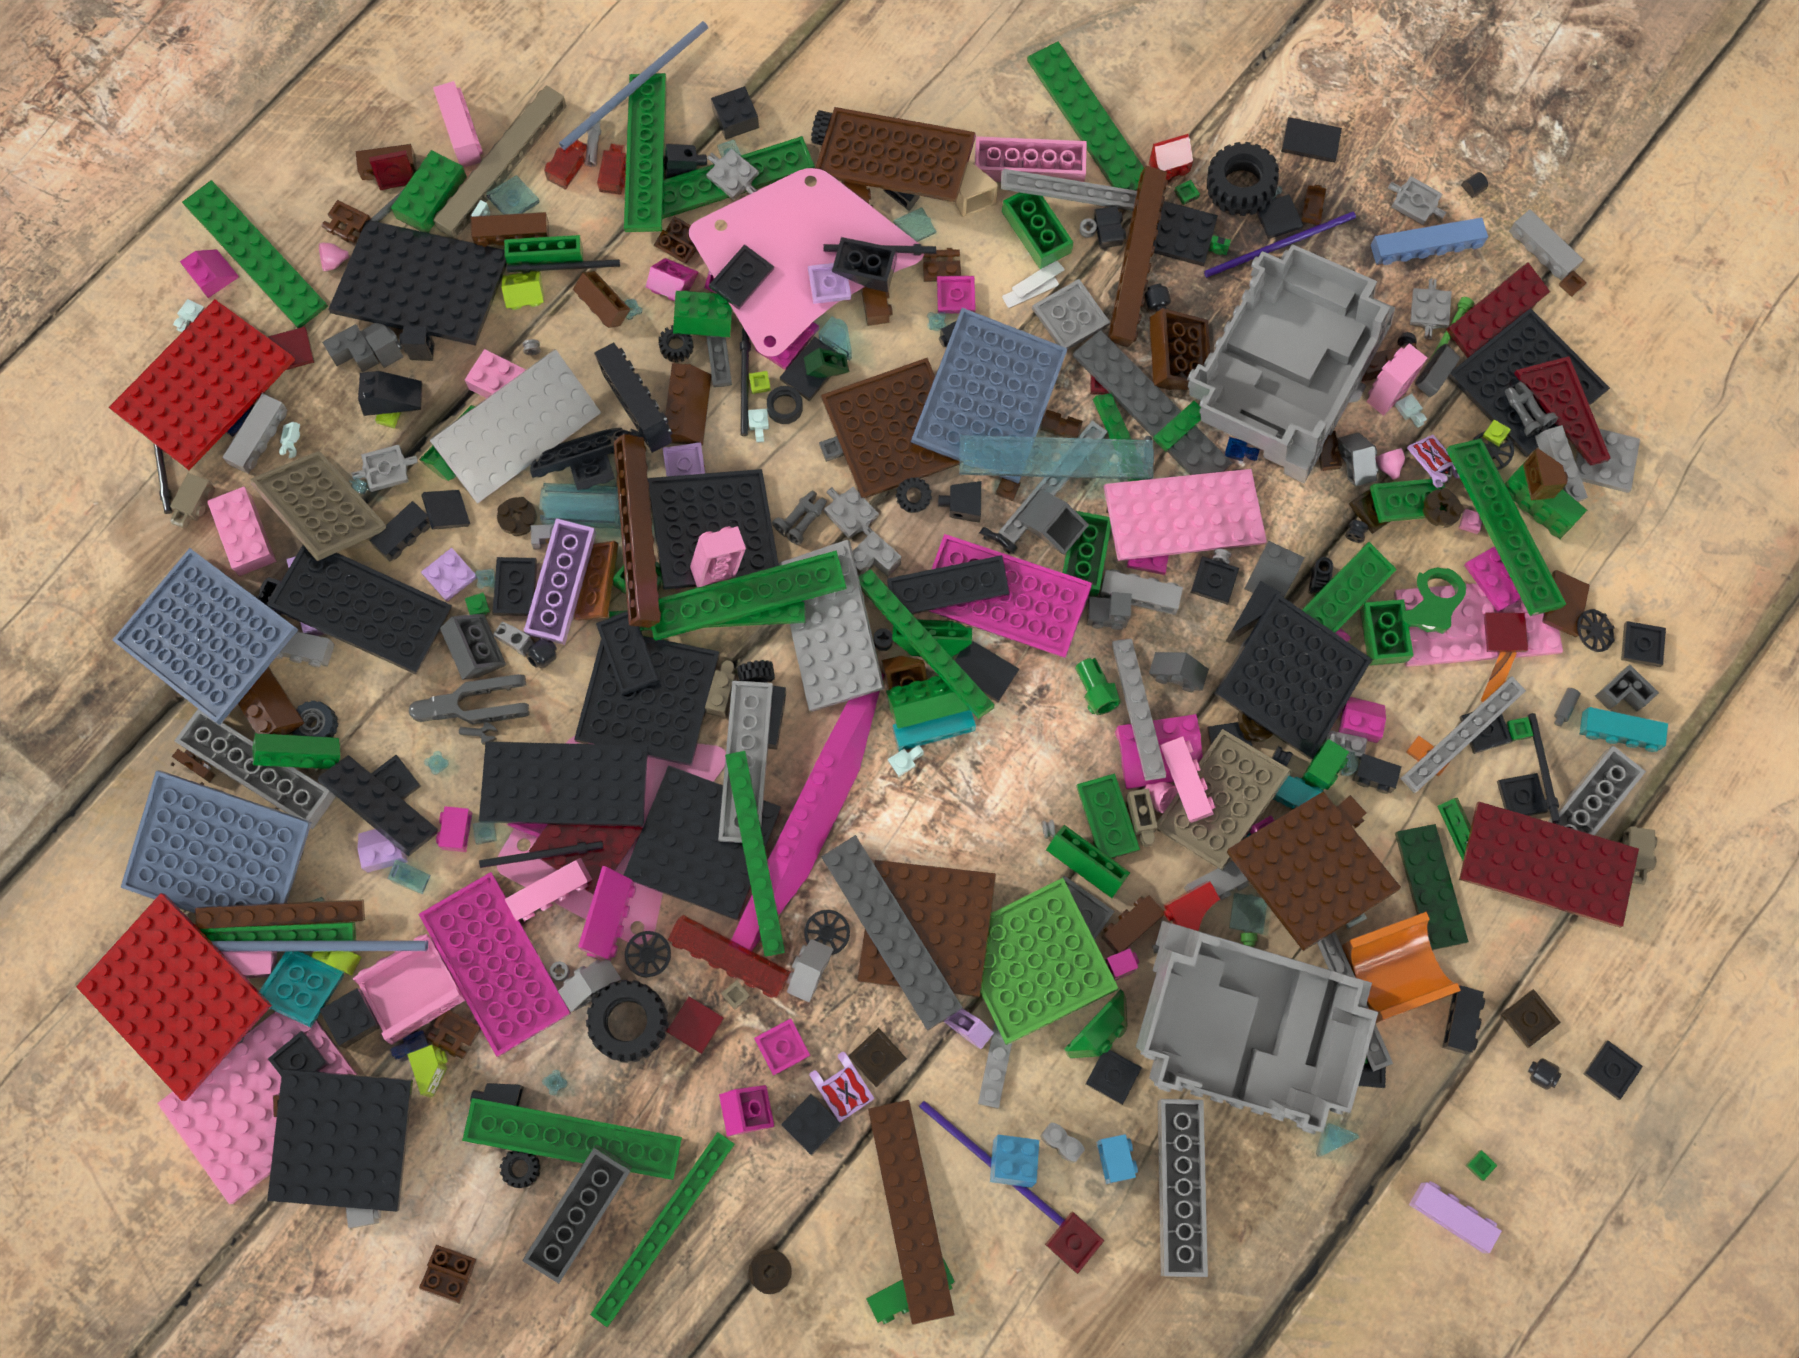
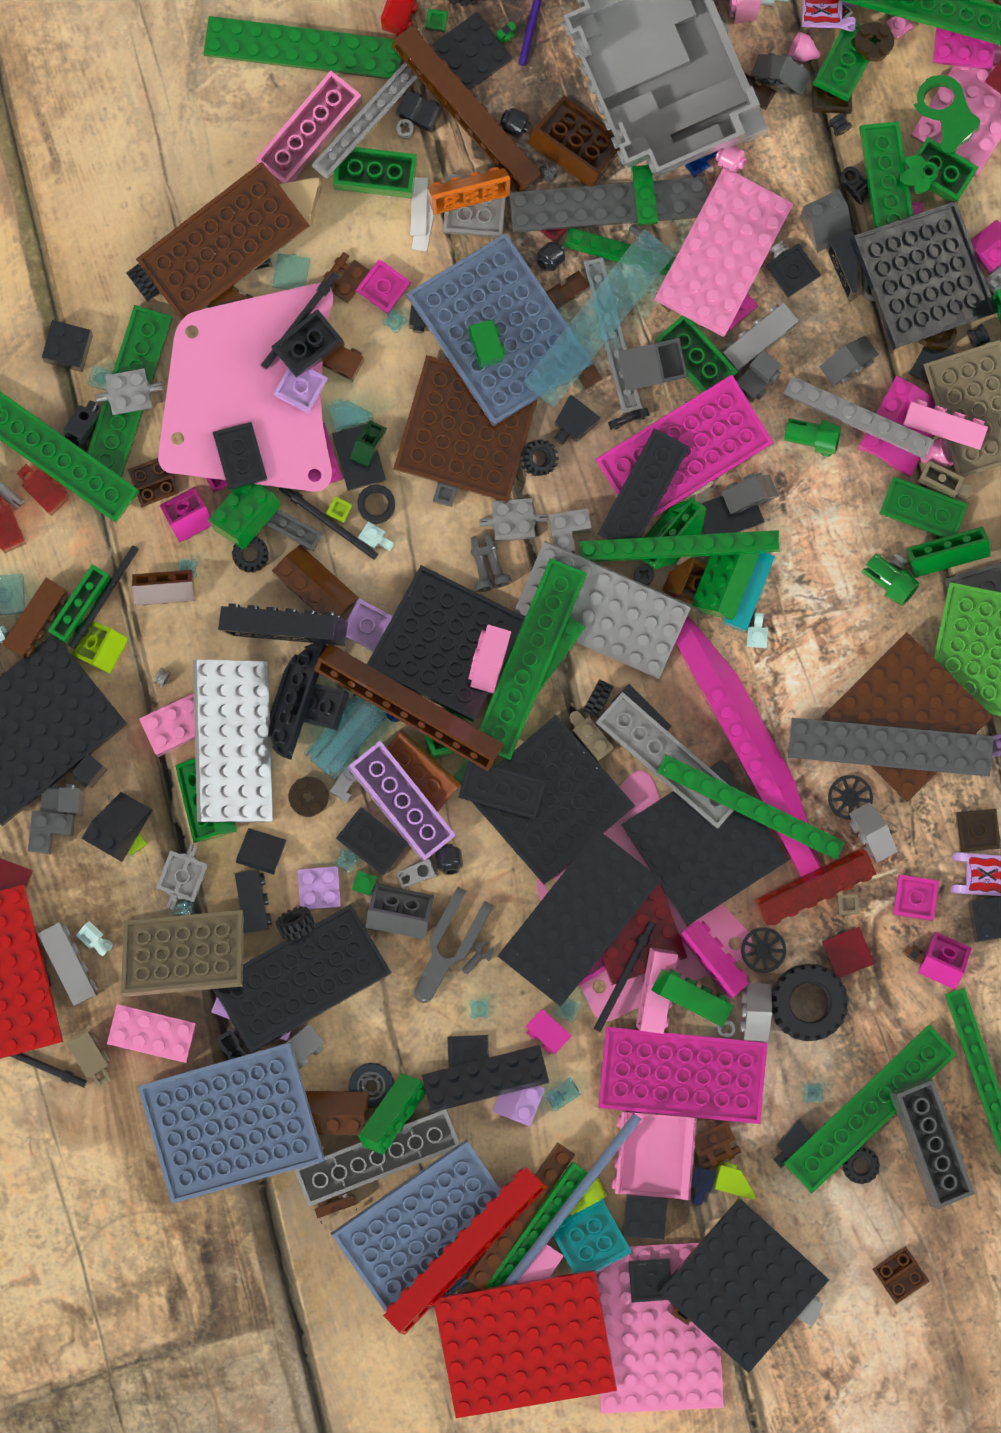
camera: 50 degrees left, 10 degrees up
(217, 887) = (464, 1251): none -> red brick
(404, 573) = (295, 923): none -> black tyre
(561, 920) = (692, 997): none -> green brick
(733, 1079) = (914, 954): none -> reddish brown plate
(968, 388) = (486, 343): none -> green brick
(1012, 669) = (752, 491): none -> dark grey brick
(1029, 841) = (898, 584): none -> green piece
(1075, 297) = (469, 190): none -> orange slope
(1076, 394) = (550, 256): none -> black head
(1140, 347) = (548, 171): none -> dark grey plate
(1262, 470) = (731, 159): none -> bright pink head
(1367, 611) = (916, 174): none -> green plate

